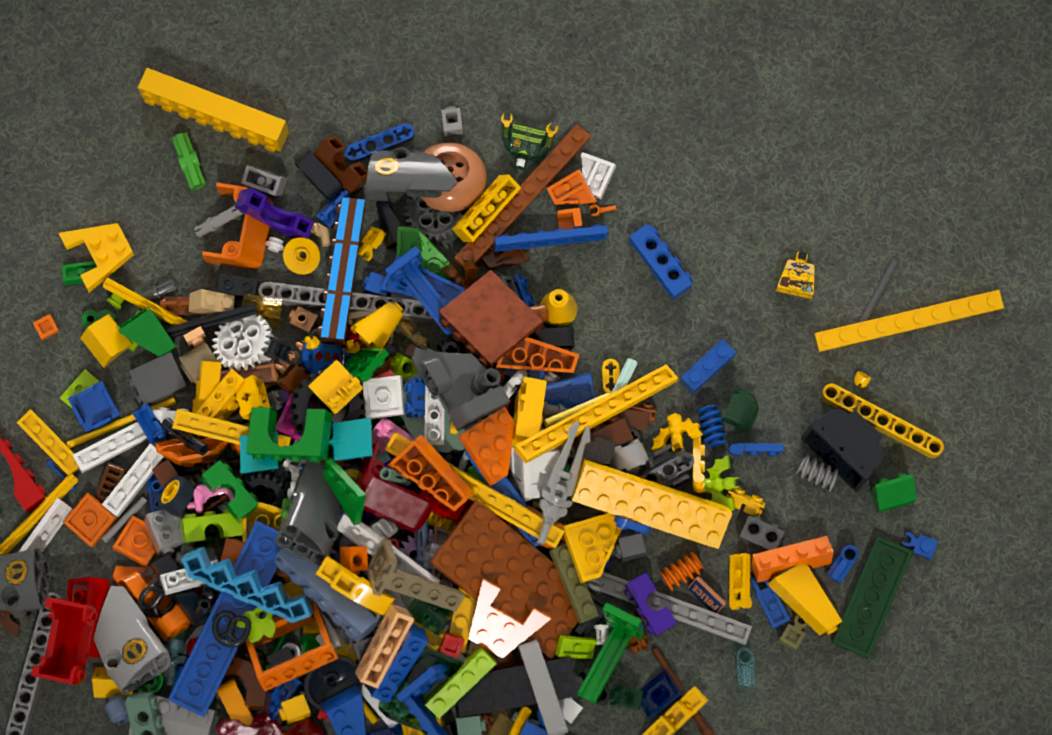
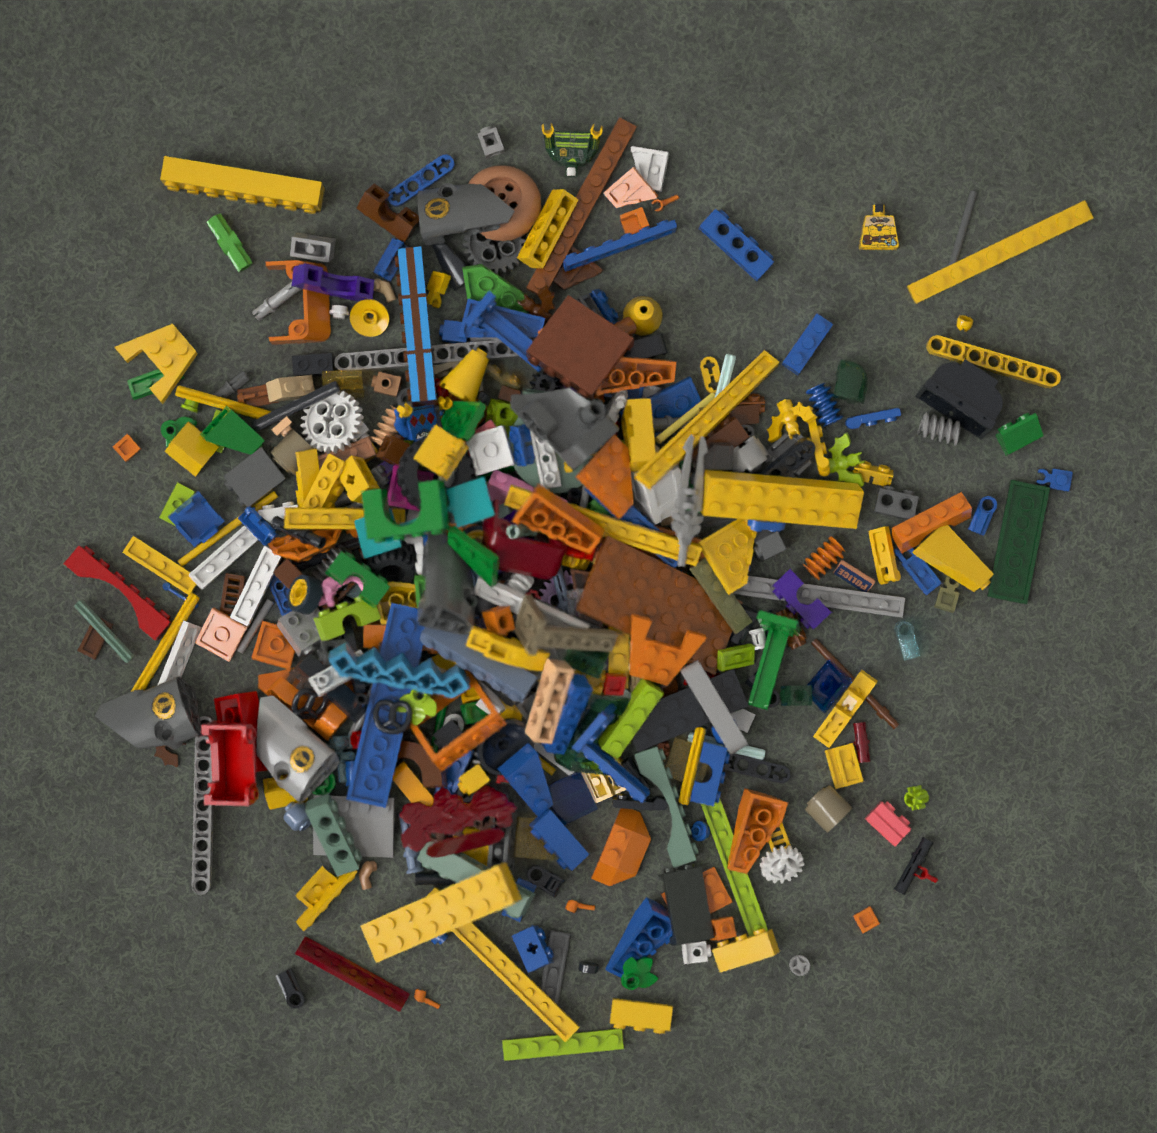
camera: 15 degrees left, 10 degrees up
(279, 351) = (375, 425): black piece -> none
(319, 175) = (367, 229): black beam -> none

